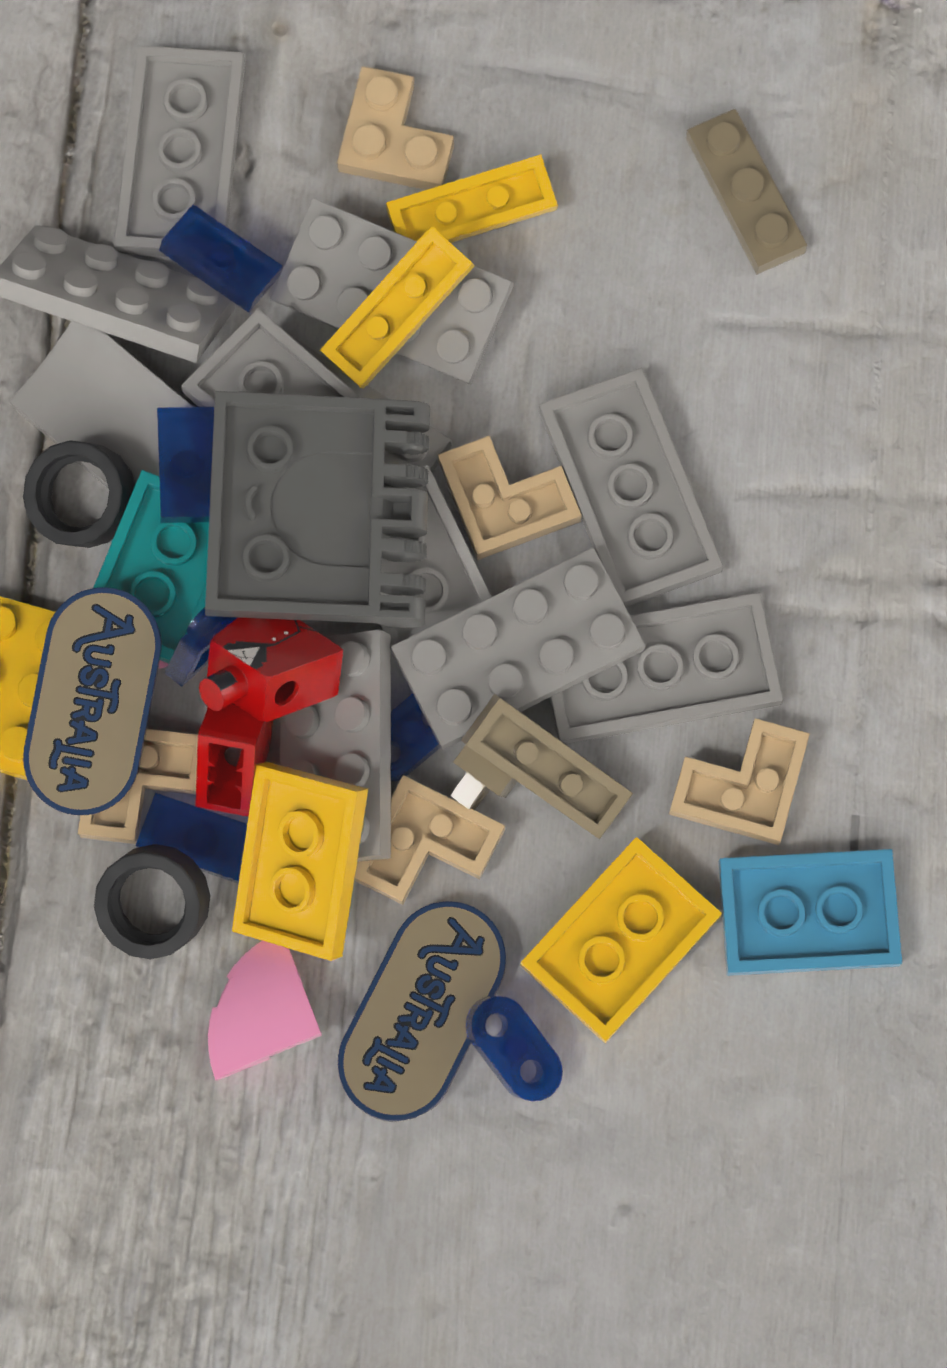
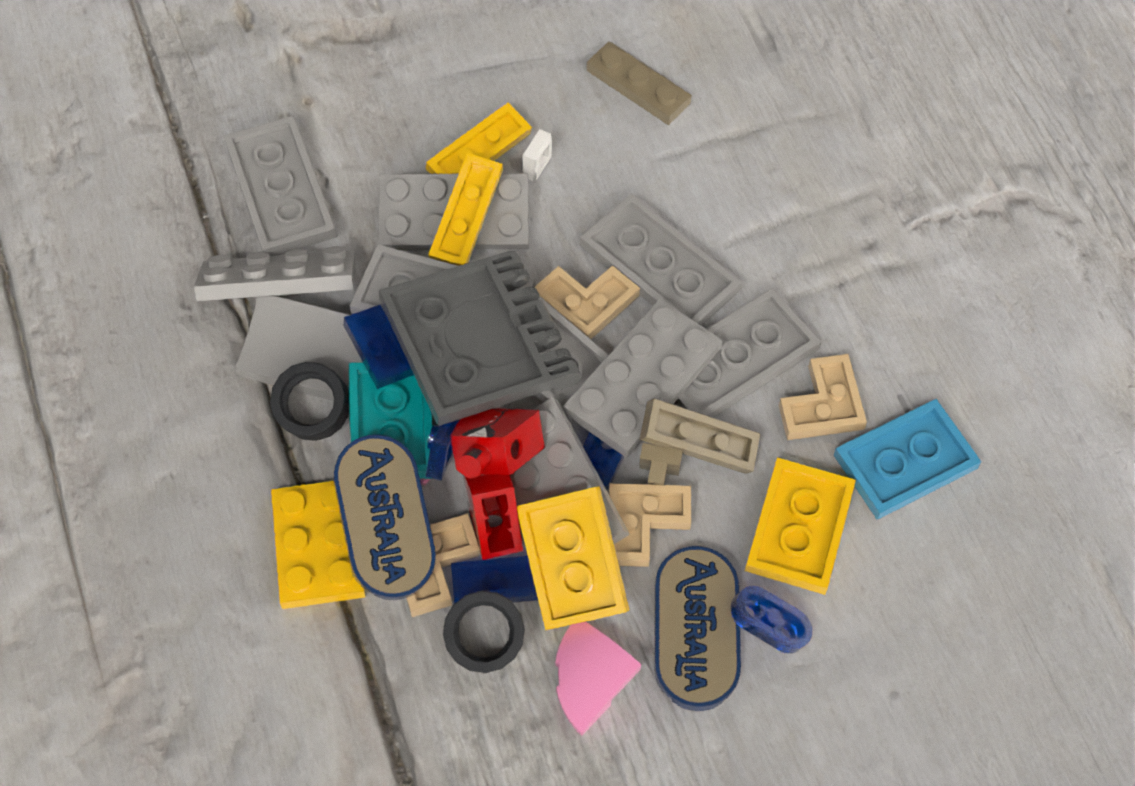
camera: 30 degrees left, 15 degrees down
(220, 258) = (337, 228): clear blue plate -> none
(379, 142) = (407, 139): tan plate -> none
(543, 253) = (537, 155): none -> white tile

